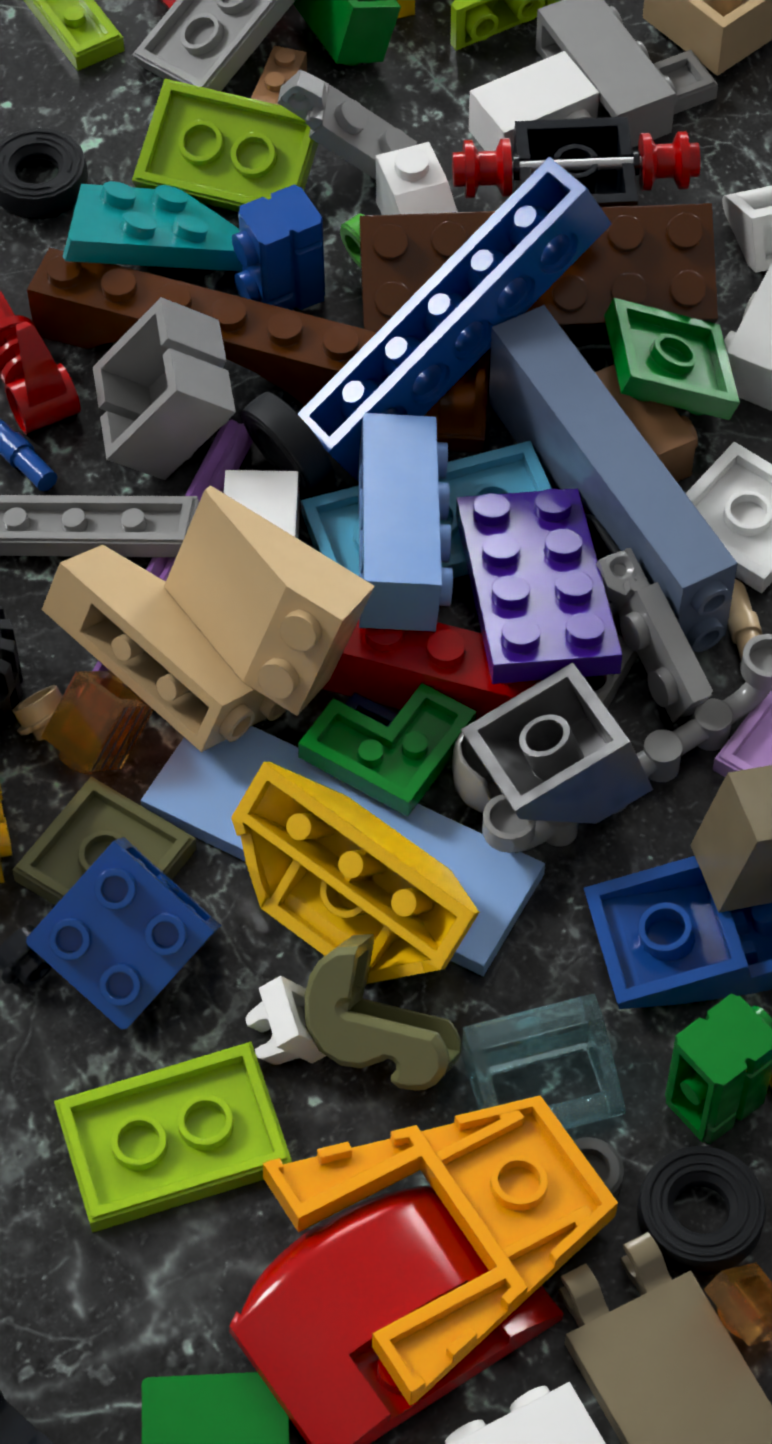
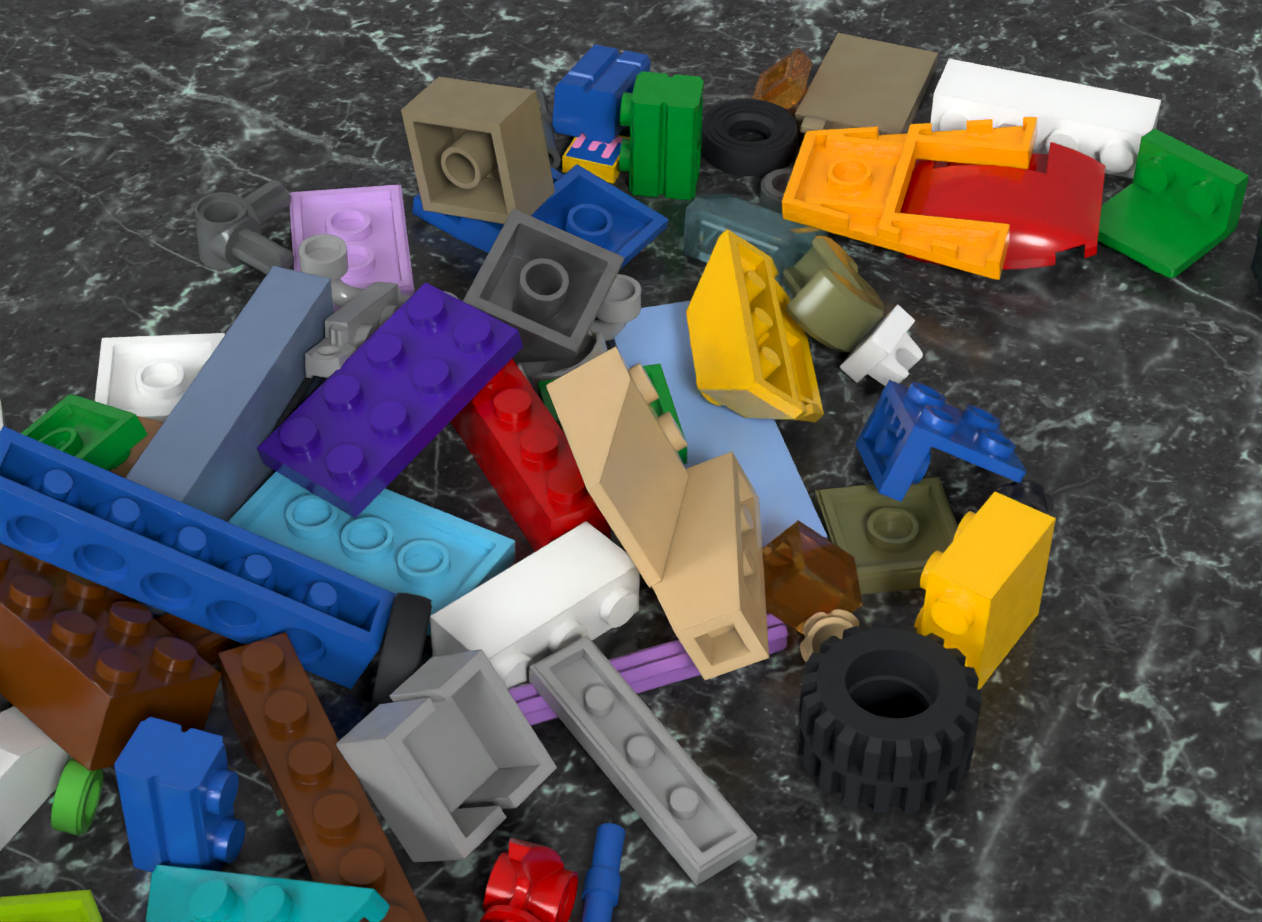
camera: 135 degrees left, 15 degrees down
(171, 1136) = (1023, 367): lime tile -> none
(401, 522) = (431, 482): medium blue brick -> none

